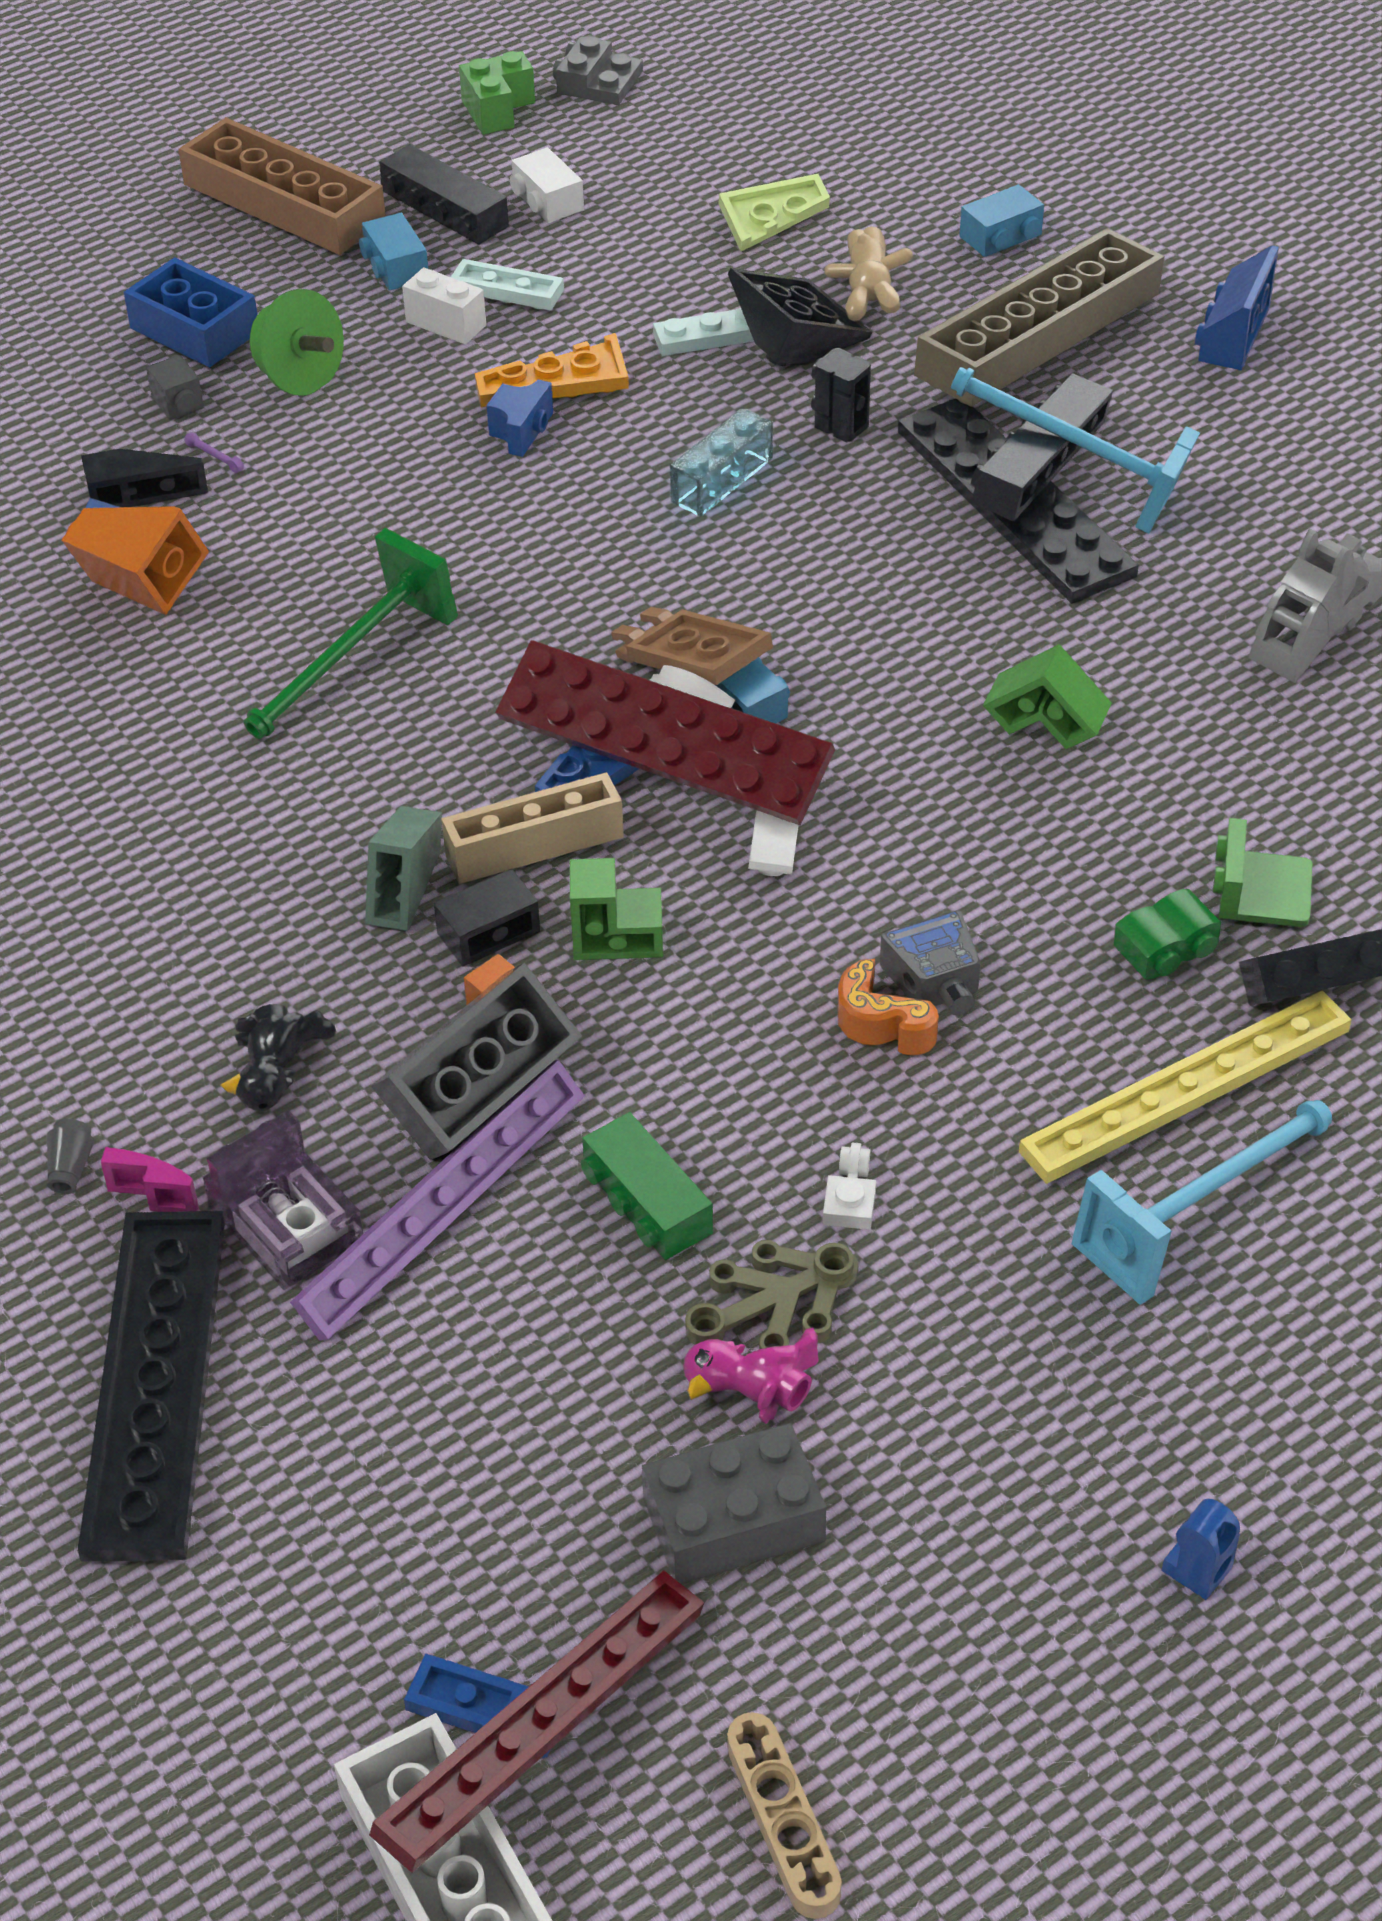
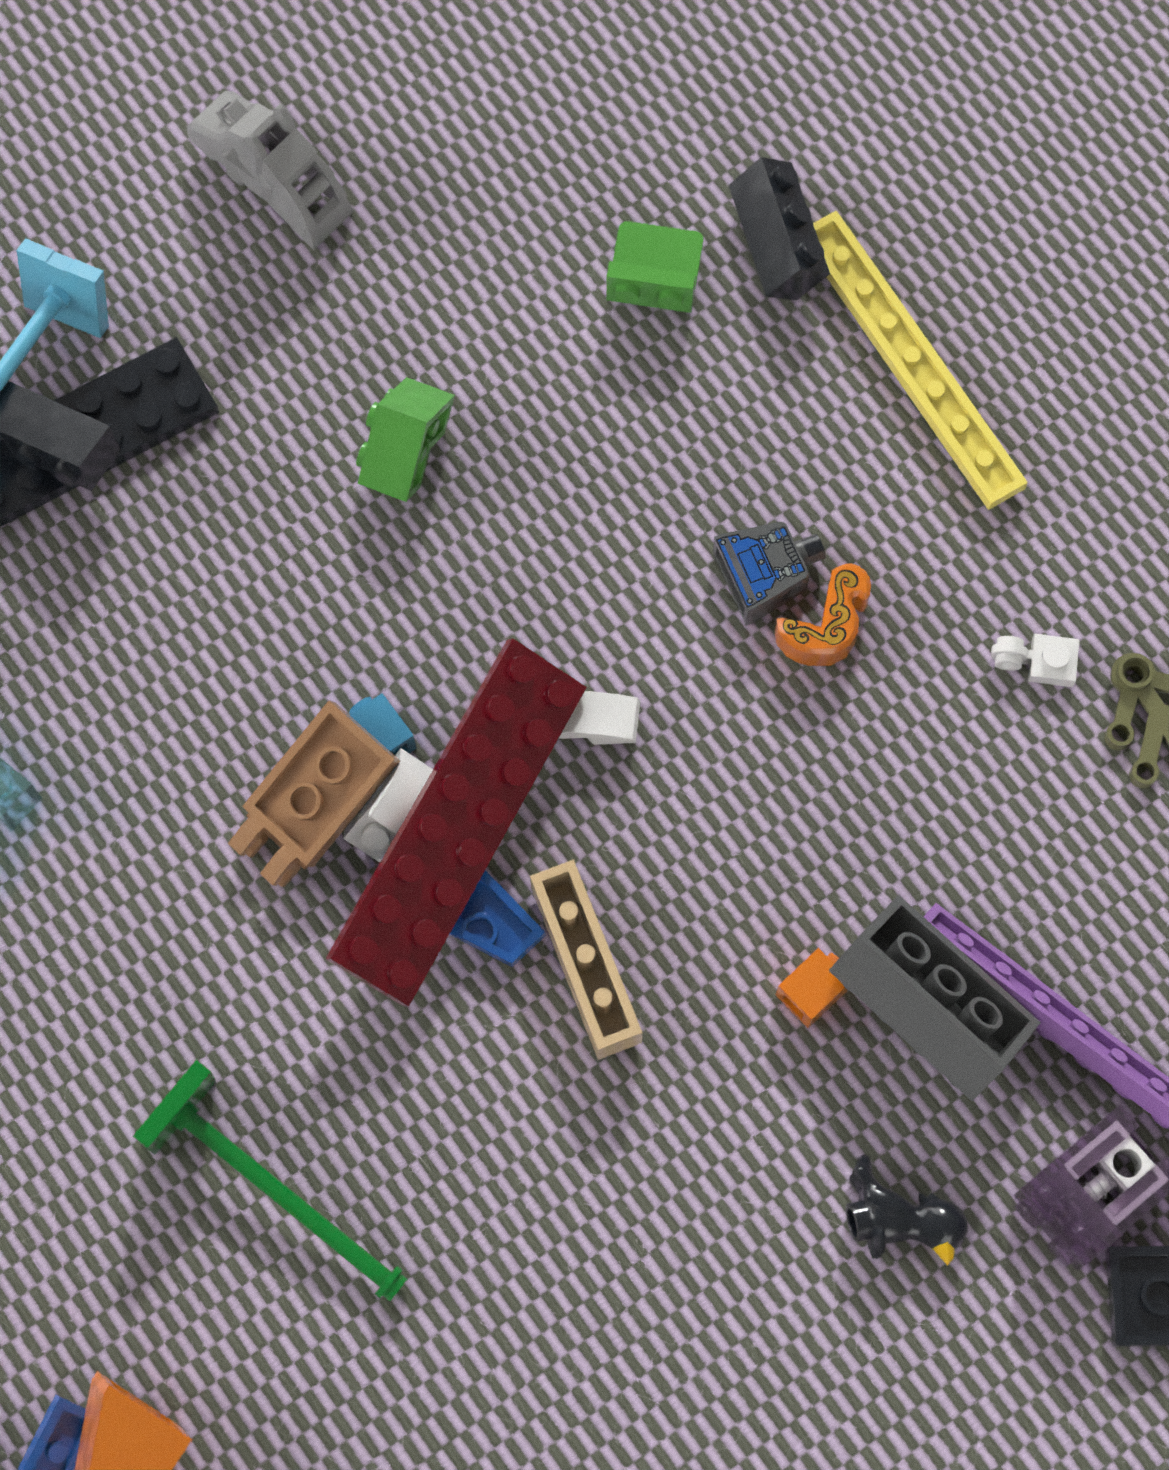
camera: 90 degrees left, 25 degrees up
(67, 1154) = (1035, 1420): dark grey cone -> none
(162, 1183) = (1075, 1313): dark pink slope -> none
(401, 866) = (629, 1097): sand green slope -> none
(487, 917) = (702, 1007): black brick -> none
(612, 920) = (713, 874): bright green brick -> none
(647, 1186) = (1055, 840): green brick -> none
(1133, 1241) = (1111, 421): medium azure tile -> none
(1167, 933) = (725, 356): green brick -> none

